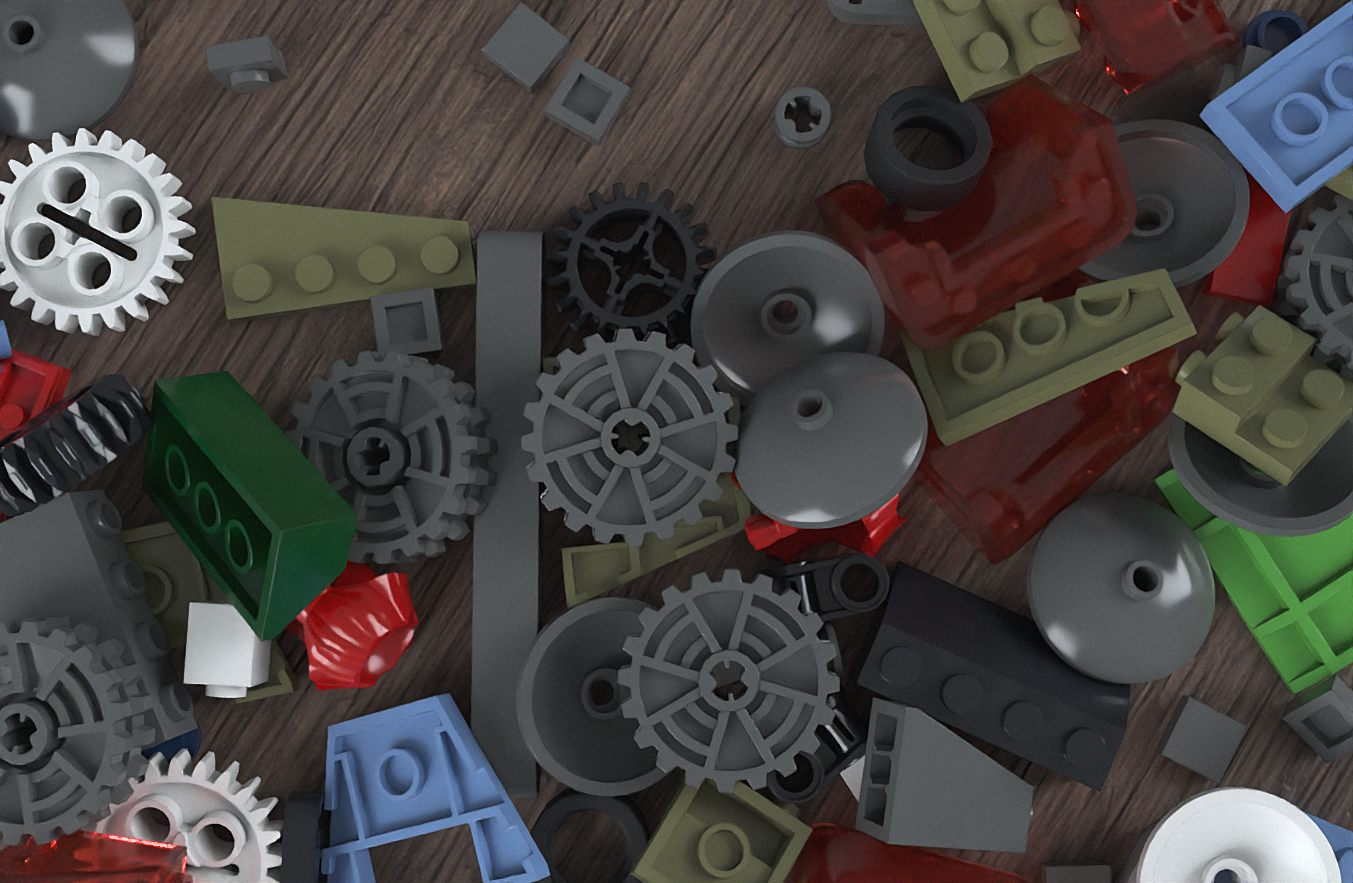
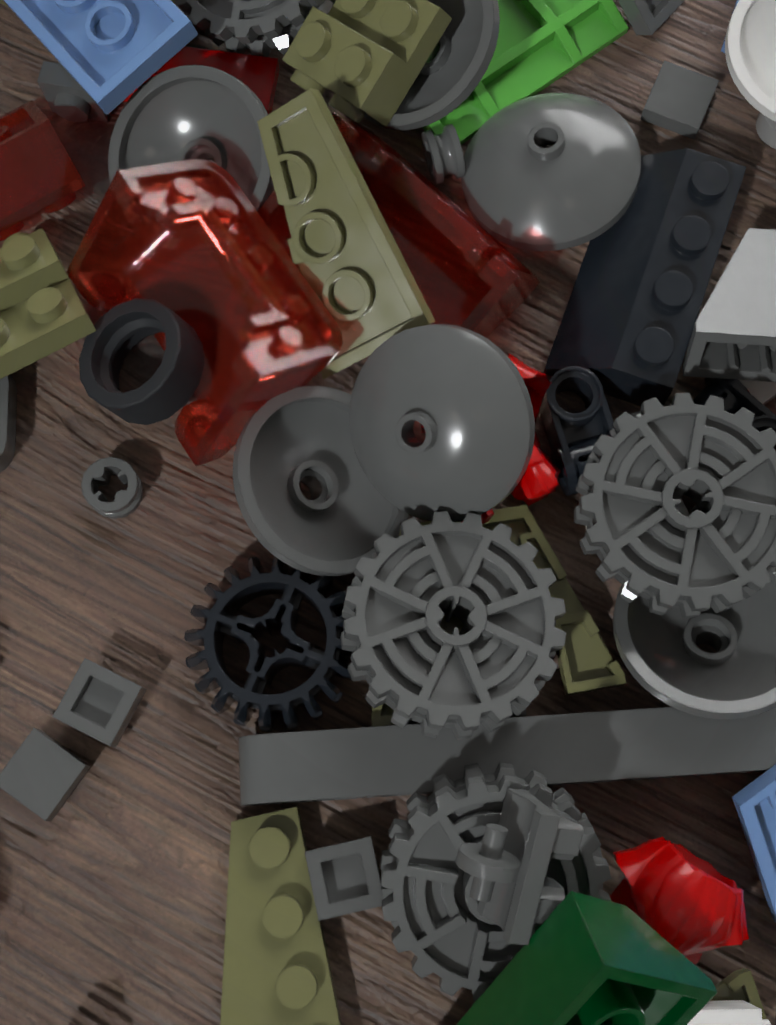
camera: 95 degrees left, 10 degrees down
(393, 467) = (514, 864): none -> dark grey hips
(1146, 474) = (443, 154): none -> dark grey bush
(1274, 30) = (23, 66): dark blue plate -> none

